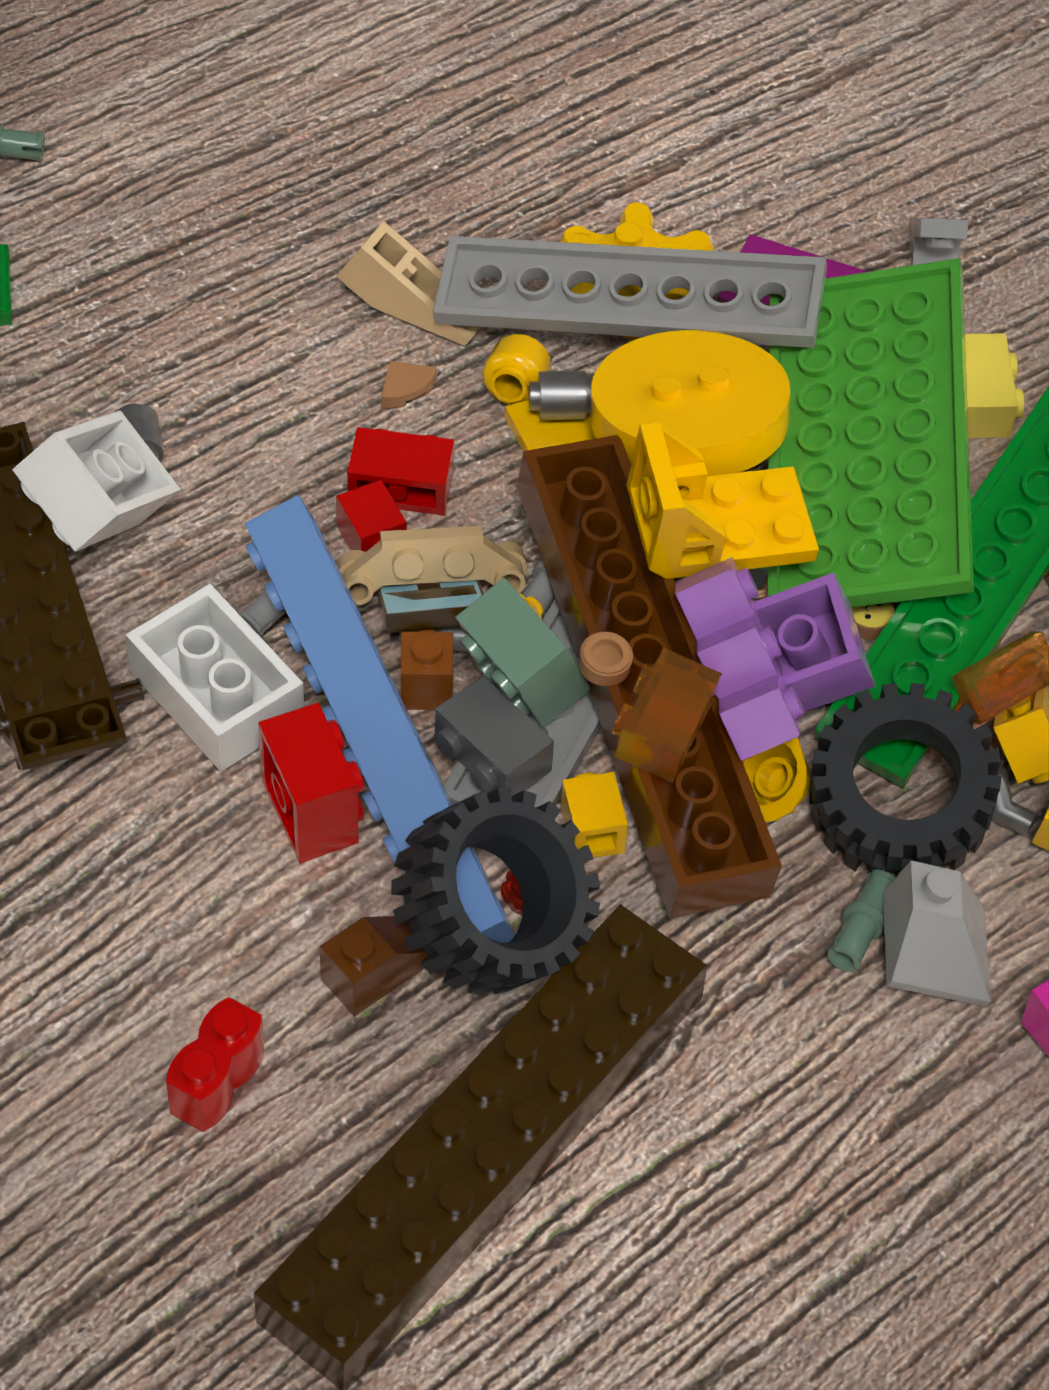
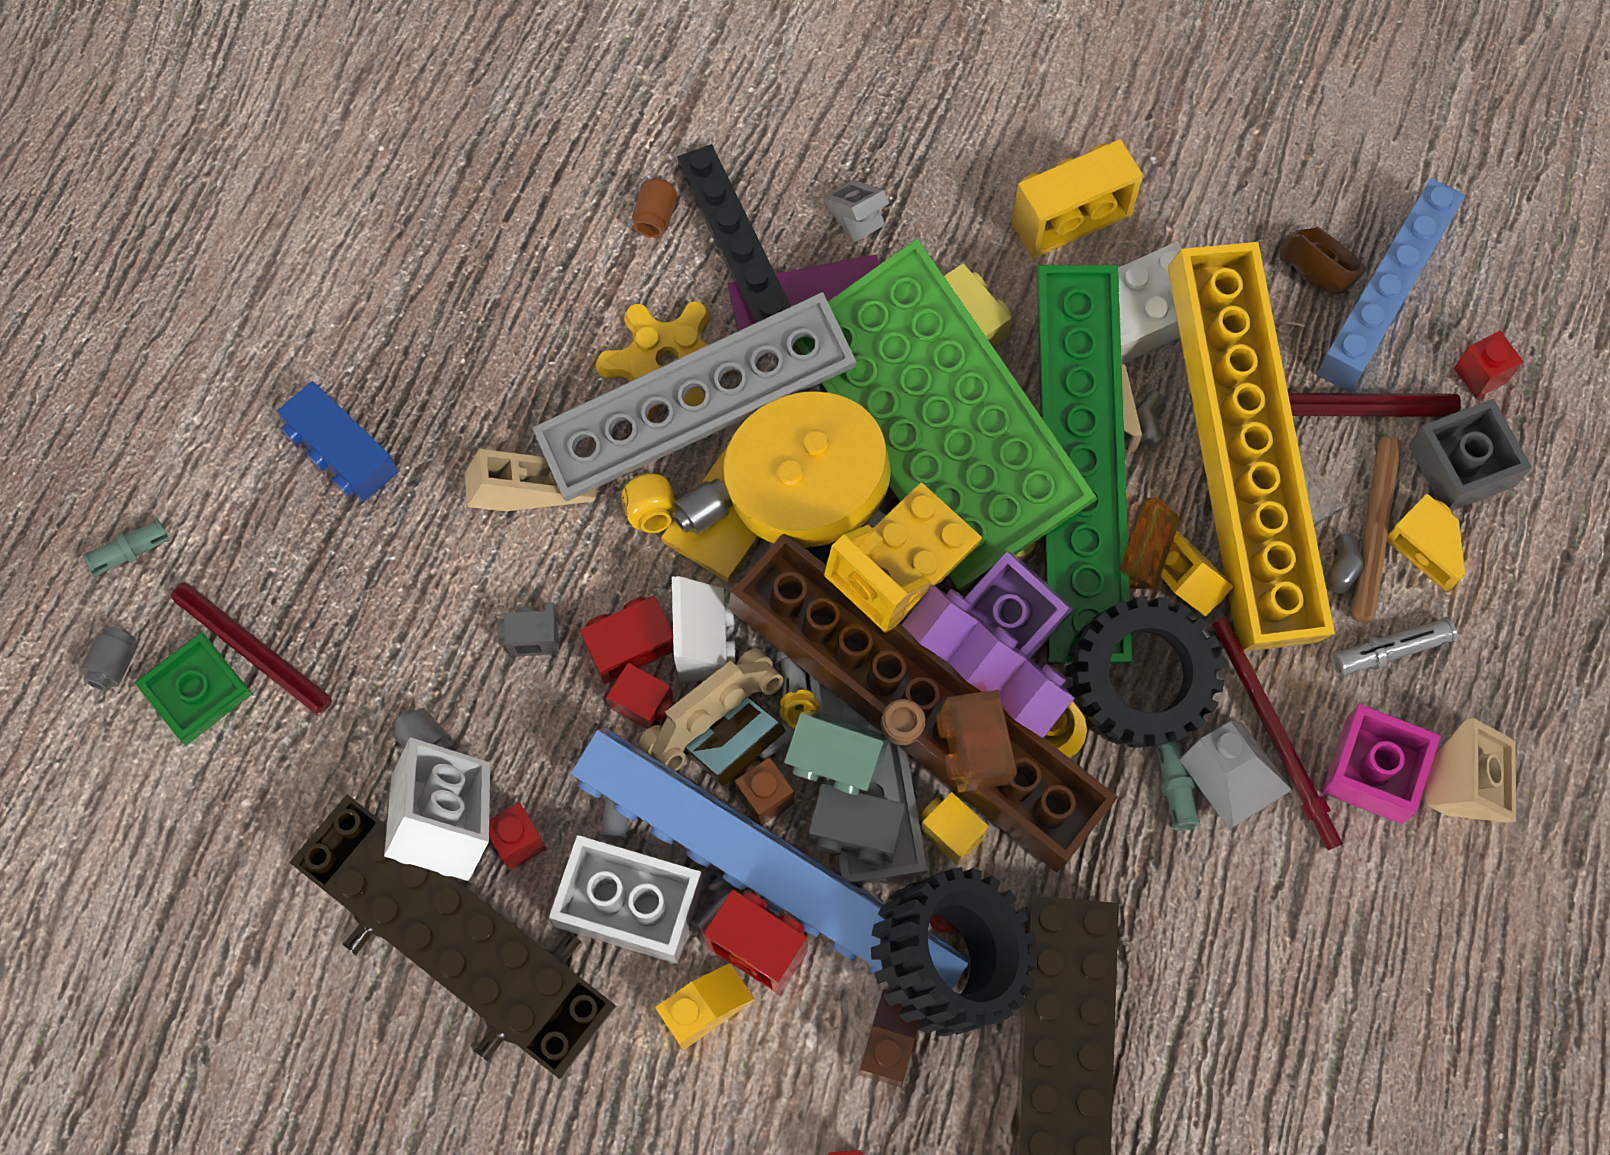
camera: 30 degrees left, 15 degrees up
(41, 285) = (251, 648): none -> dark red axle
(153, 566) = (515, 836): none -> red brick
(213, 814) = (704, 1005): none -> yellow slope
(257, 161) = (336, 442): none -> blue brick
(312, 412) = (530, 631): none -> flat silver brick
(406, 382) = (576, 561): medium nougat tile -> none
(475, 484) = (700, 629): none -> white slope
(727, 133) = (654, 207): none -> dark orange brick
(792, 182) = (733, 233): none -> black plate
(1002, 1026) = (1313, 807): none -> dark red bar

